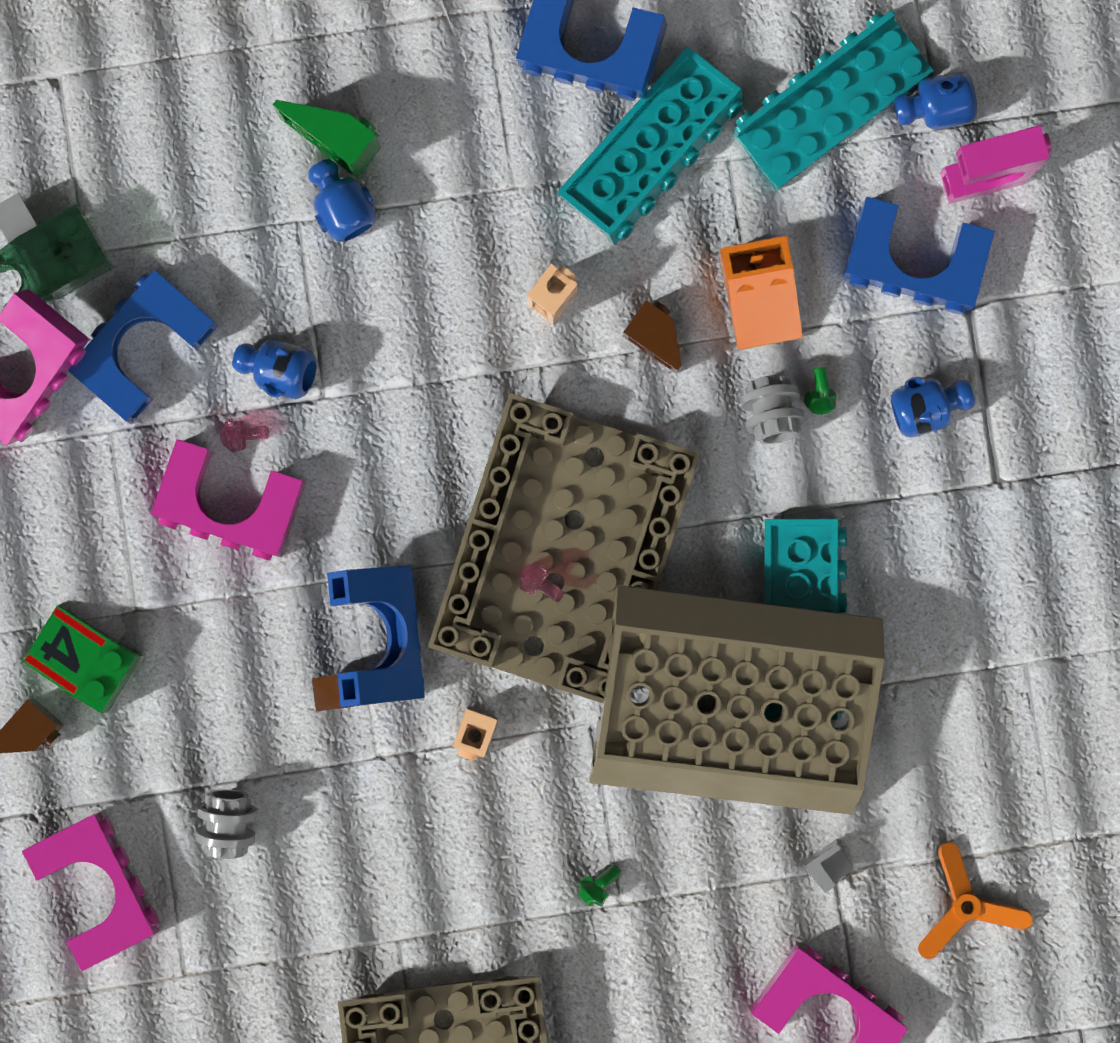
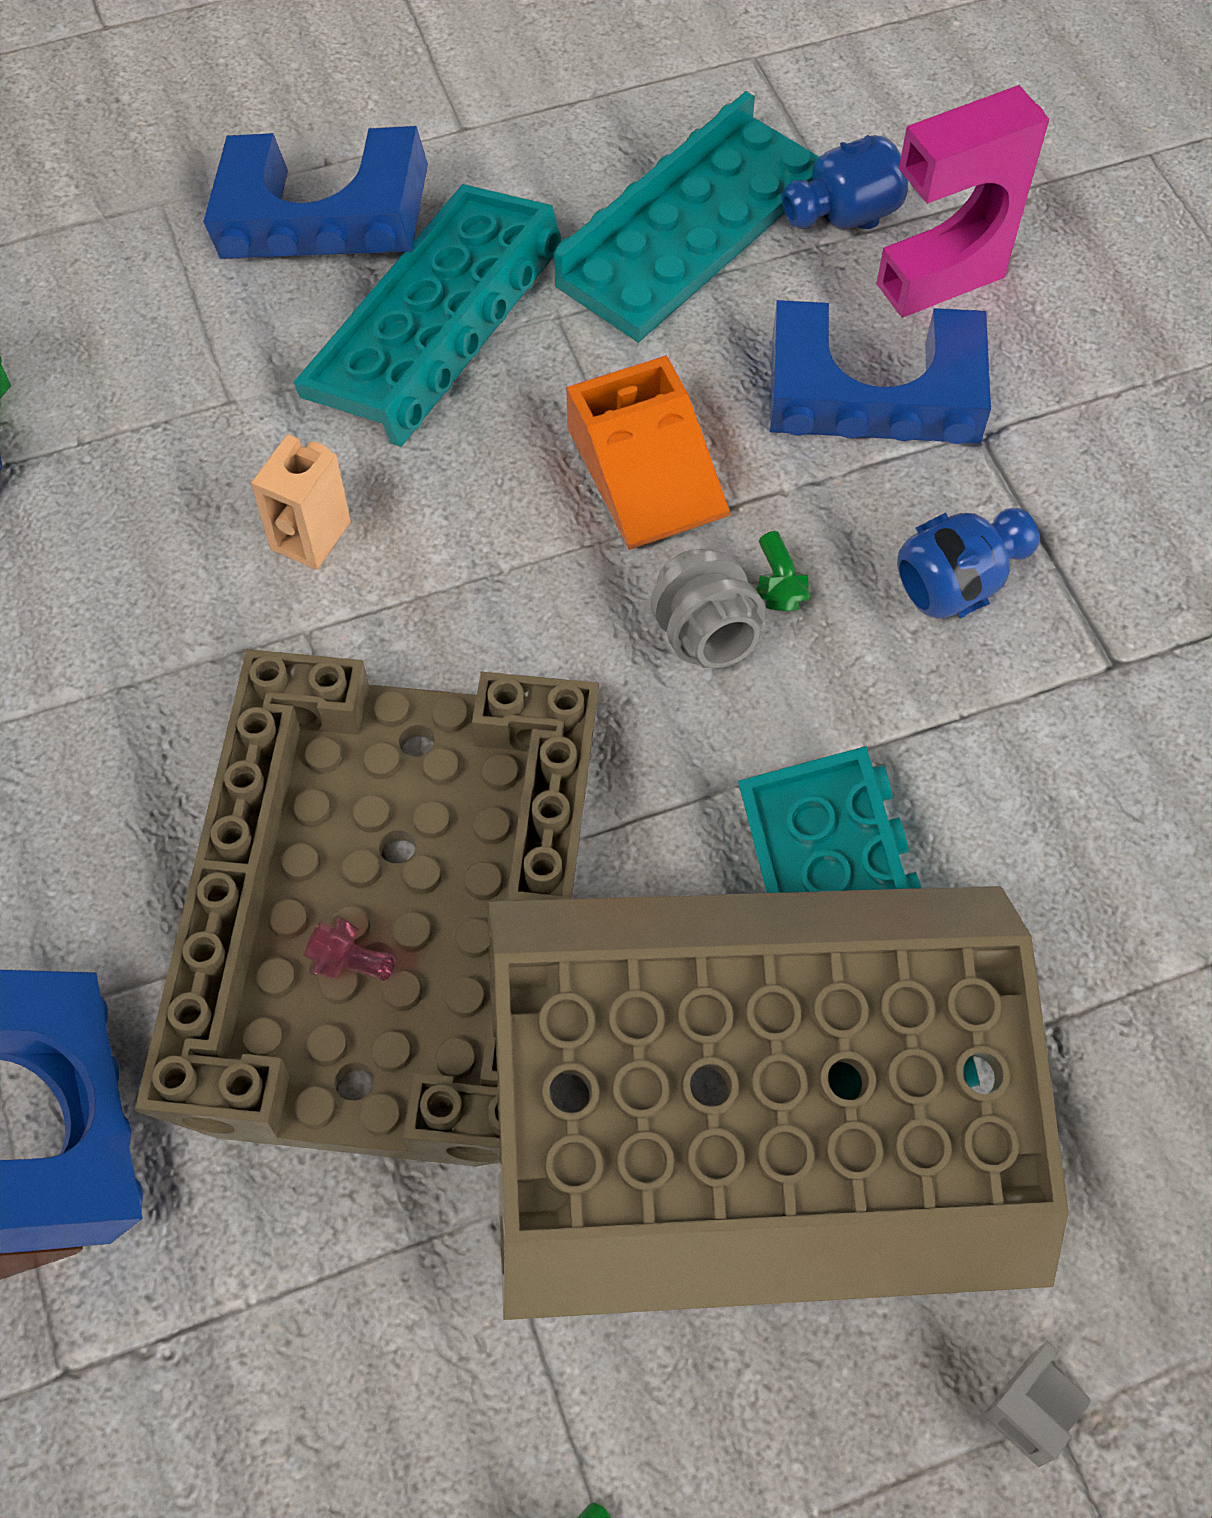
camera: 15 degrees left, 25 degrees down
(470, 721) = (243, 1253): light nougat brick -> none
(655, 334) = (486, 545): reddish brown slope -> none

